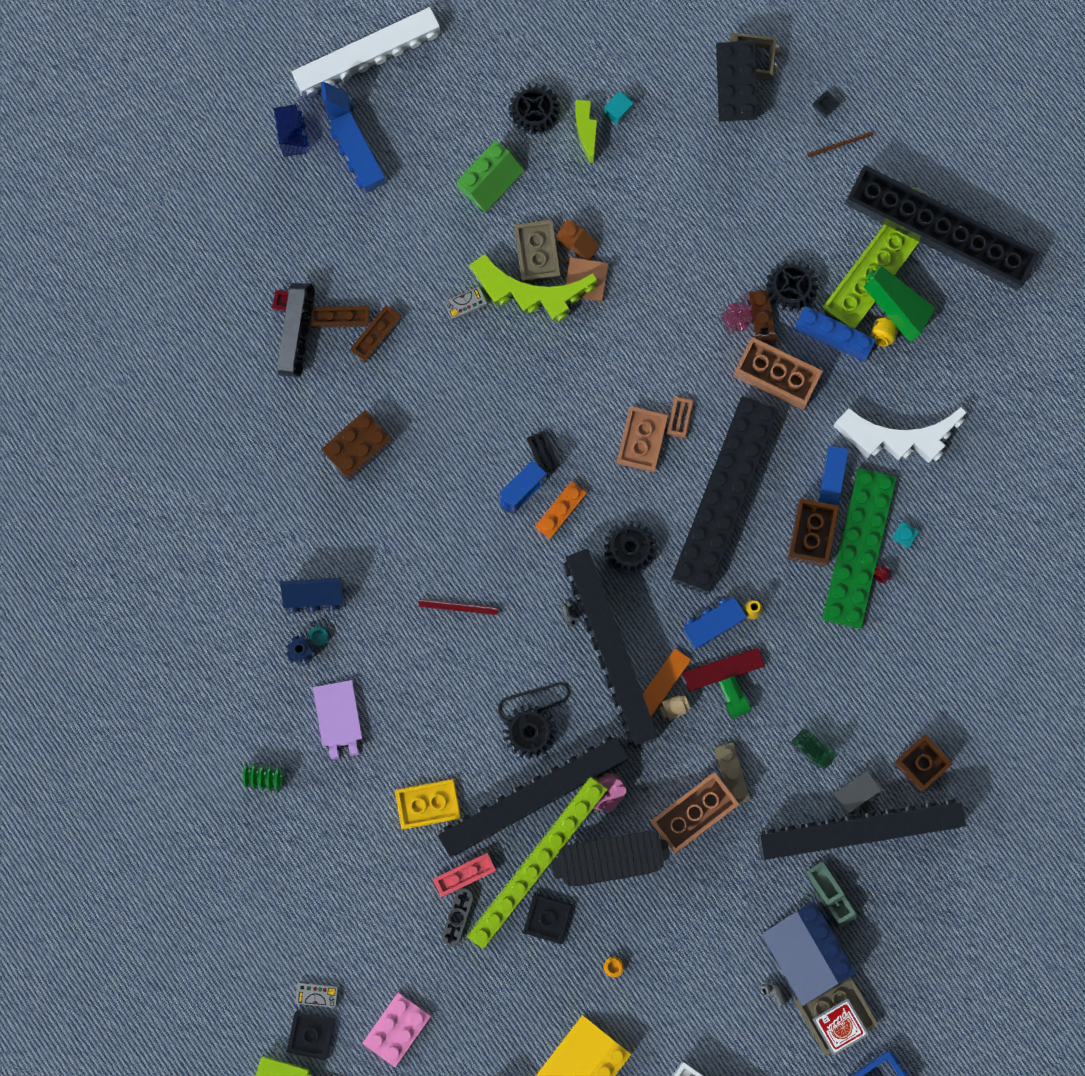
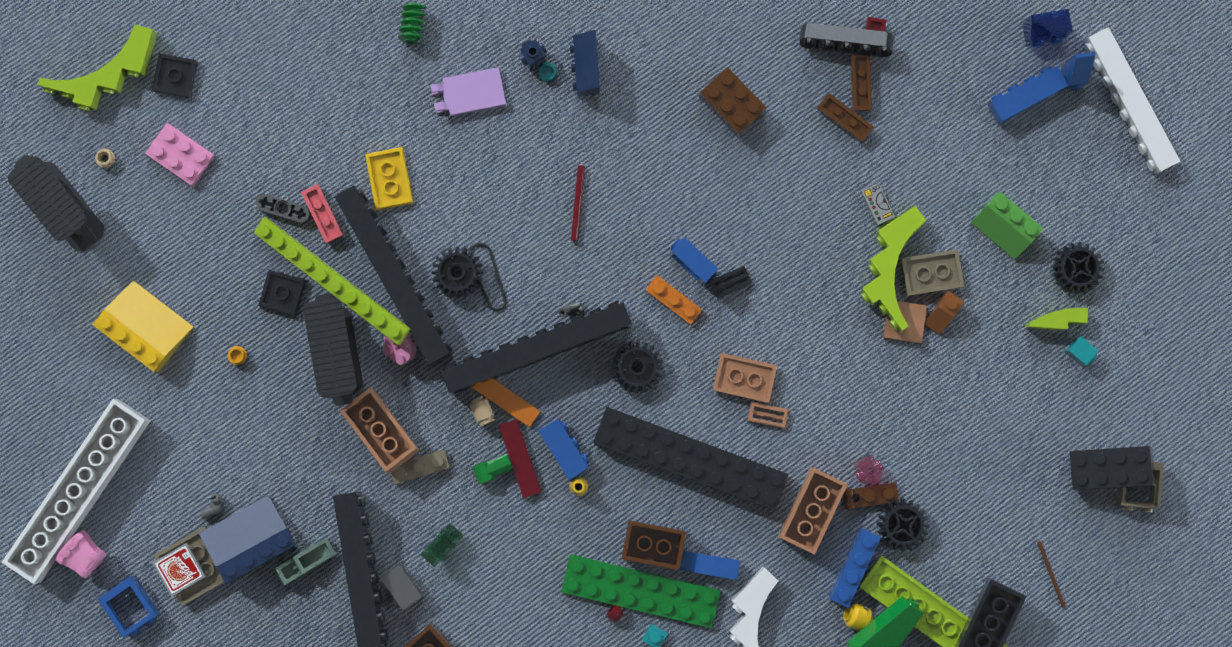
camera: 80 degrees right, 5 degrees up
(316, 995) = (211, 79): light grey tile -> none
(826, 104) = (1092, 560): black plate -> none

